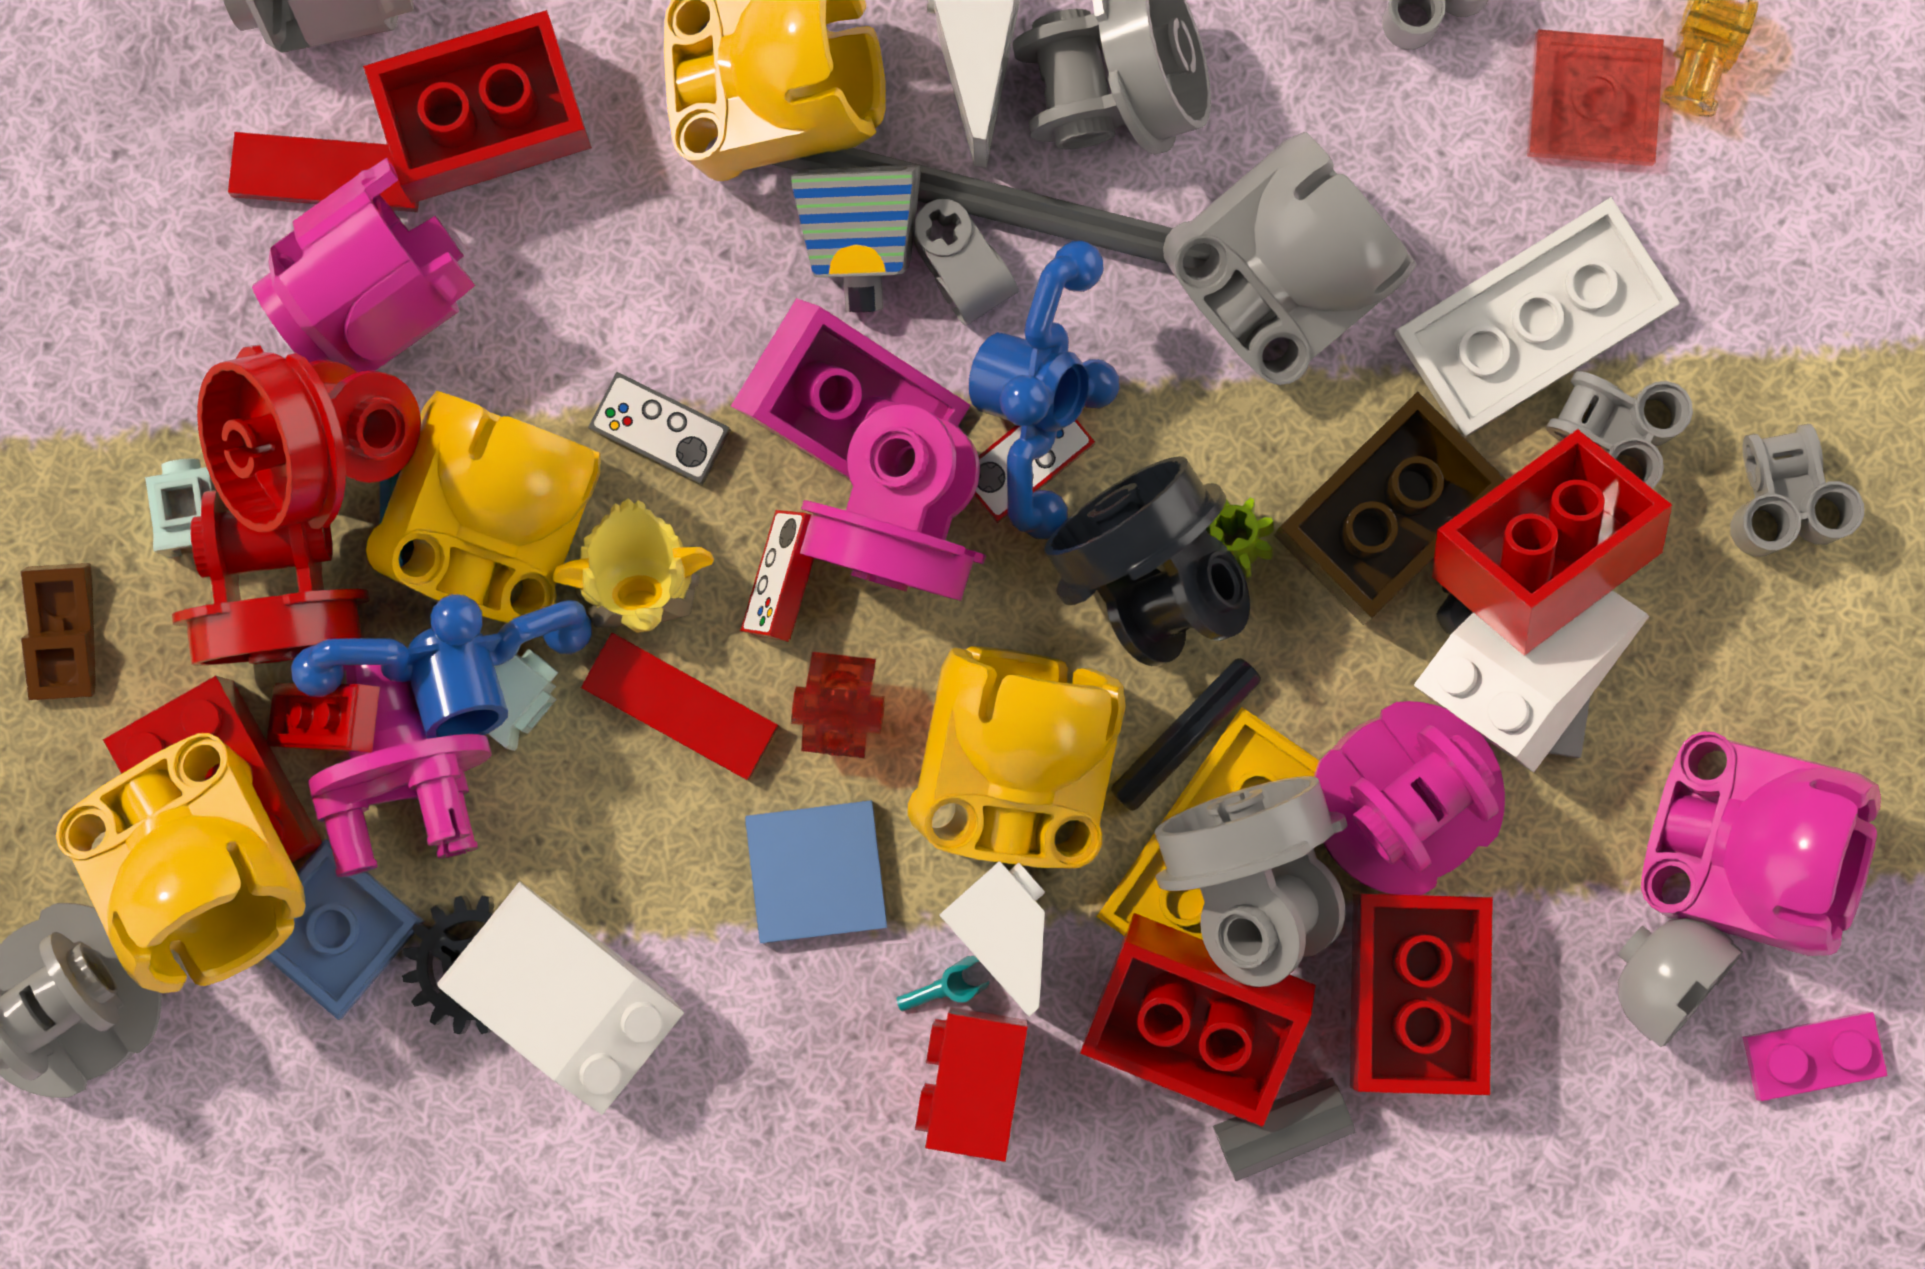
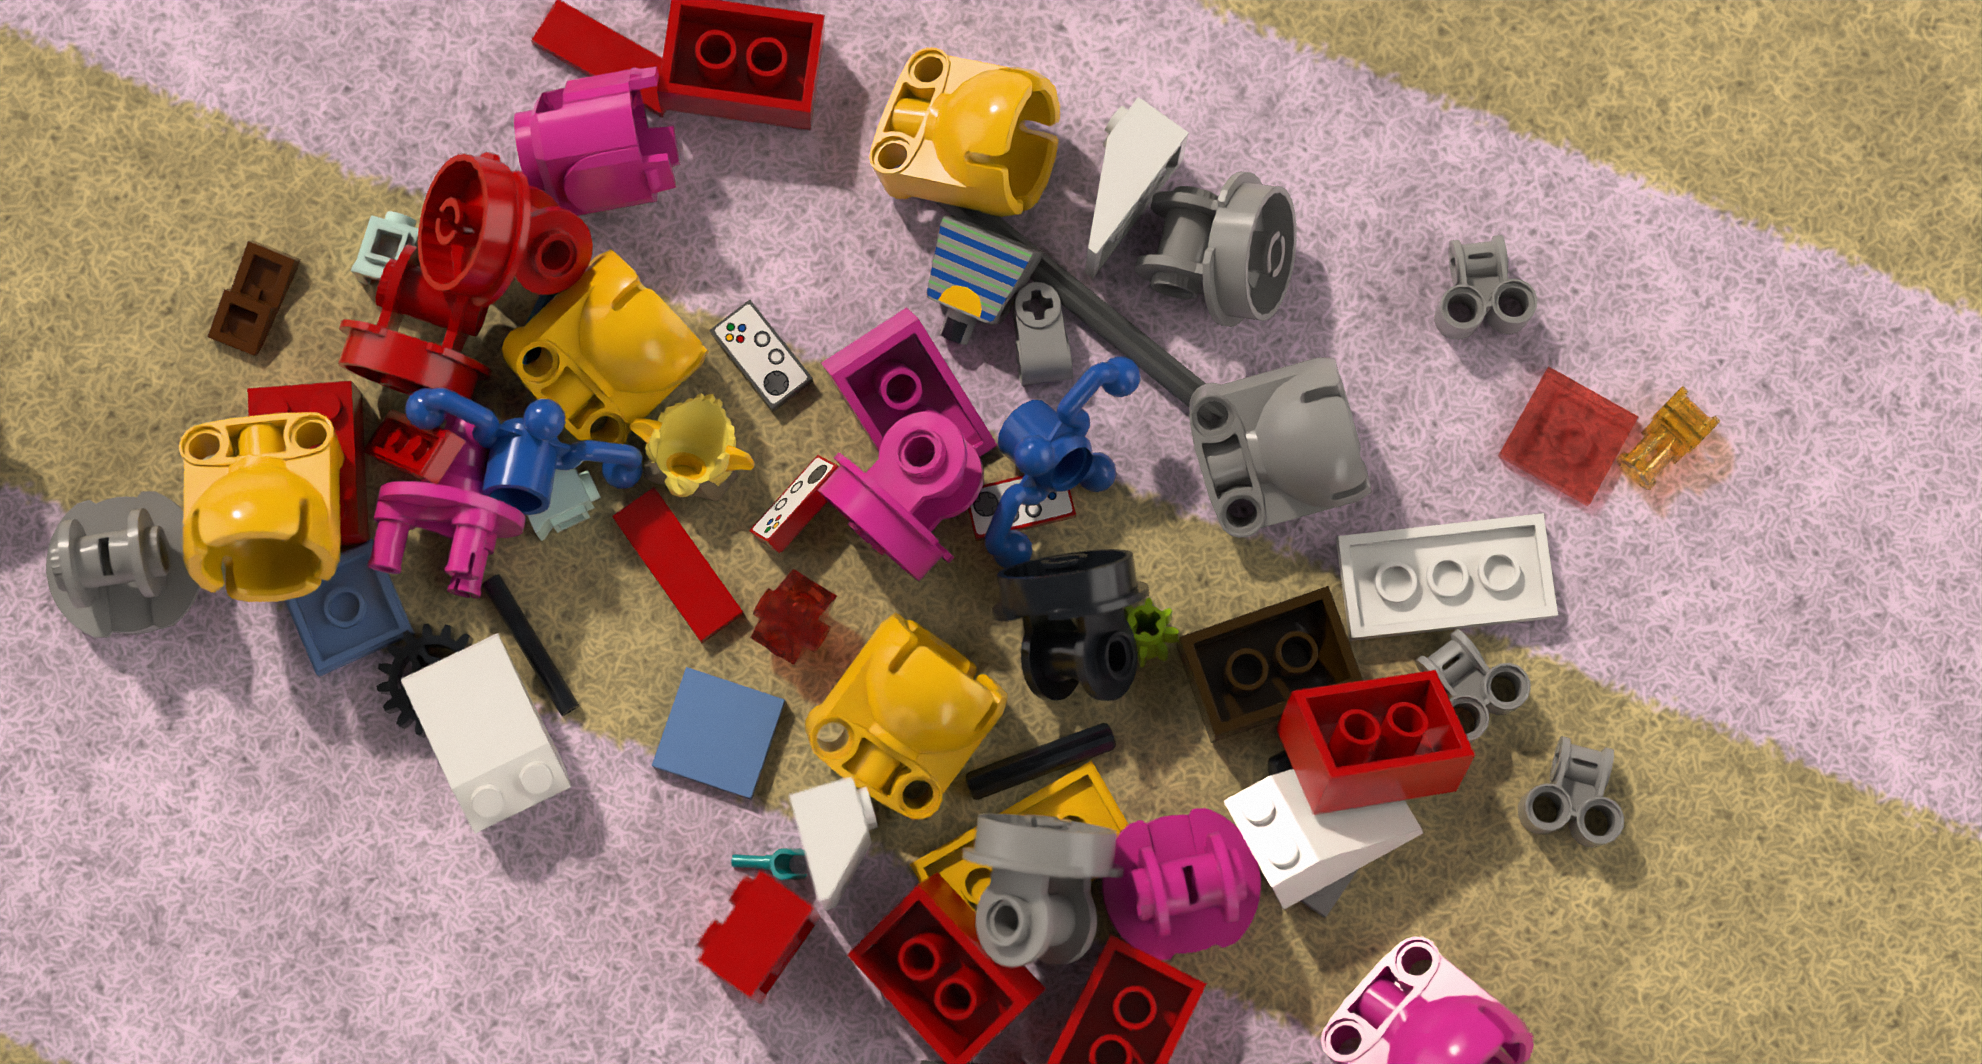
camera: 15 degrees right, 5 degrees down
(559, 872) = (530, 645): none -> black piece

